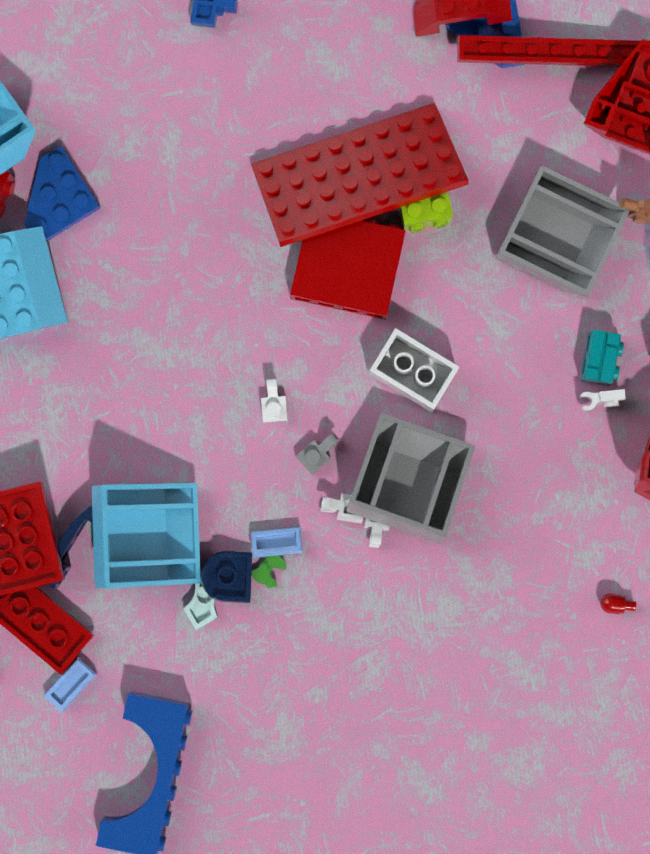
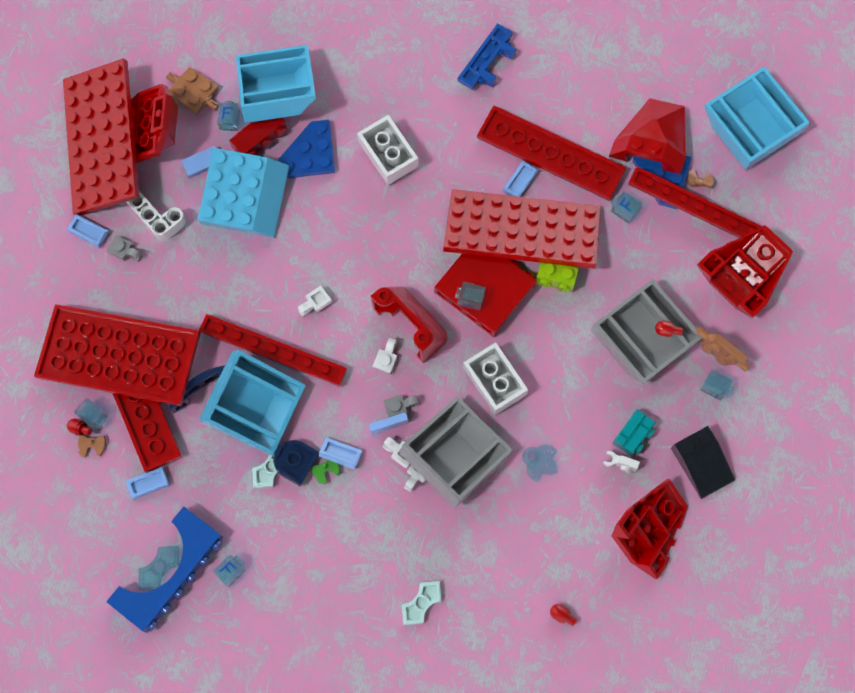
camera: 30 degrees right, 10 degrees down
(131, 784) = (152, 574): none -> clear light blue tile
(136, 459) = (273, 350): none -> red plate
(151, 151) = (388, 149): none -> white brick
(157, 374) = (315, 300): none -> white plate
(218, 738) = (230, 570): none -> clear light blue brick
(256, 326) = (429, 334): none -> red windscreen
(315, 481) = (388, 423): none -> light blue tile
(326, 114) = (520, 180): none -> light blue tile
(339, 286) = (470, 295): none -> clear light blue brick
(346, 63) = (551, 152): none -> red plate
(455, 657) = (414, 611): none -> light aqua tile
(466, 90) = (625, 206): none -> clear light blue brick
(513, 441) = (542, 463): none -> clear light blue plate
(544, 13) = (693, 180): none -> nougat piece
(587, 218) = (667, 329): none -> red cylinder

